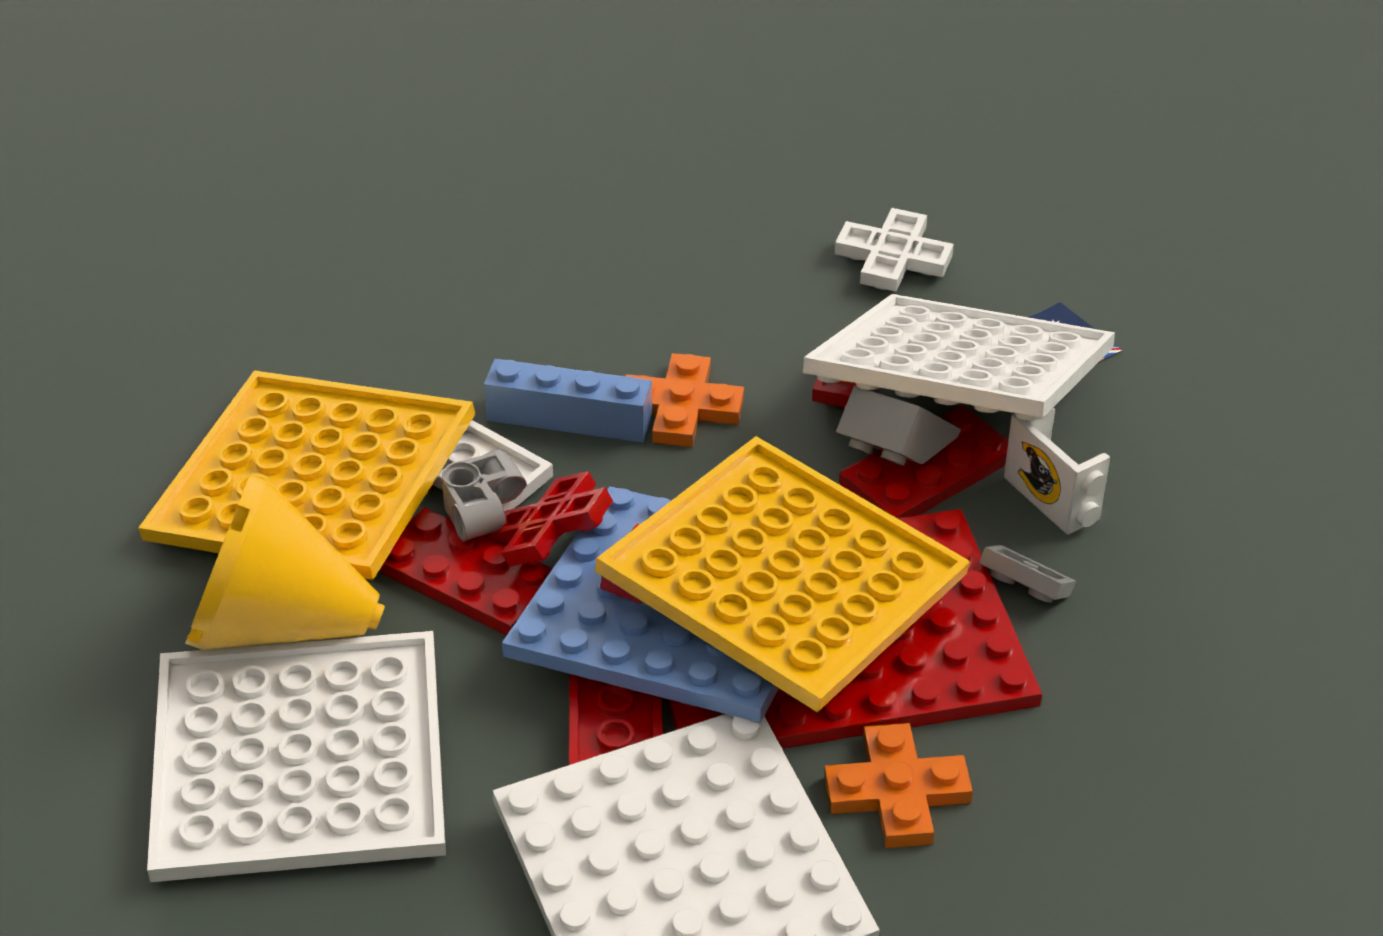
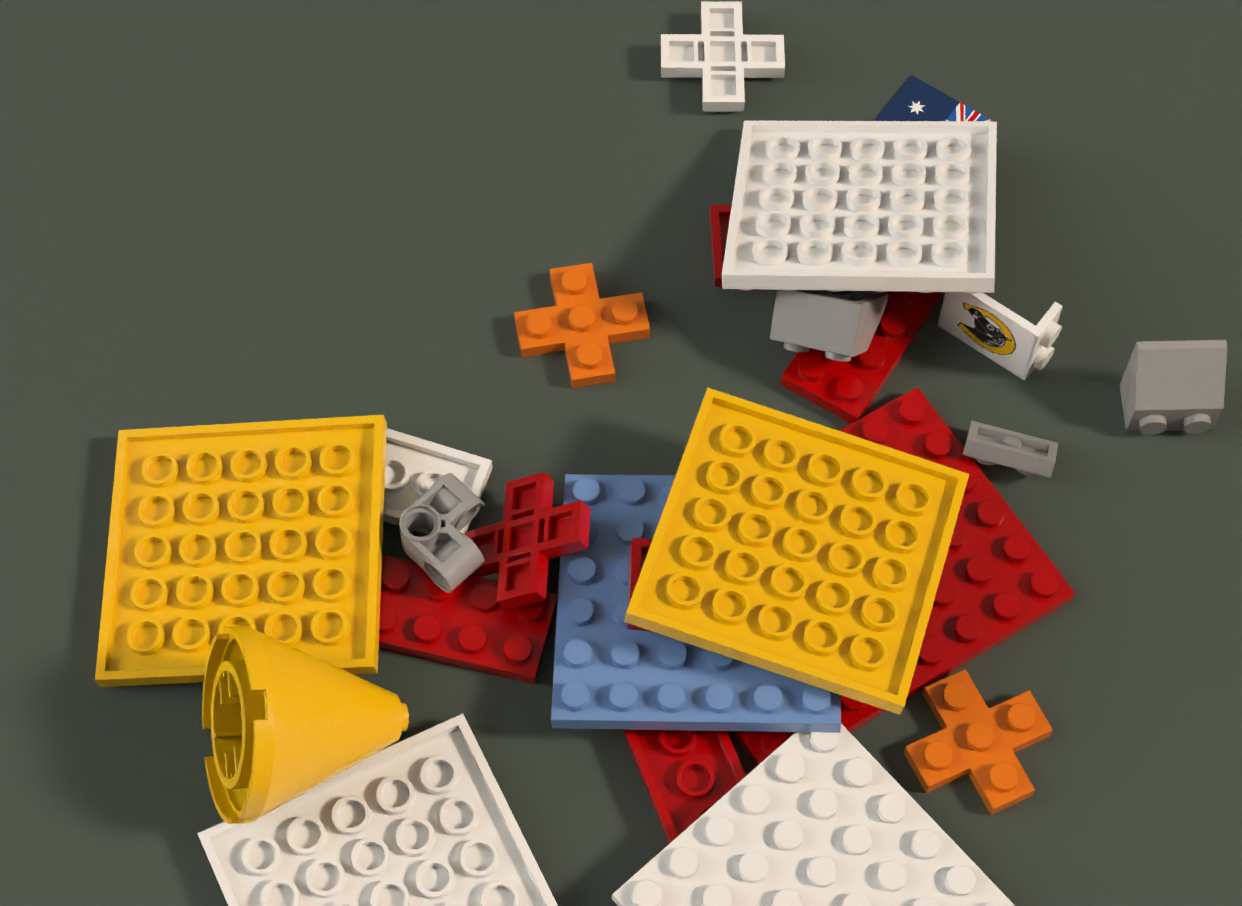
camera: 20 degrees left, 20 degrees up
(568, 400) = (472, 369): medium blue brick -> none
(1202, 555) = (1174, 386): none -> light grey slope

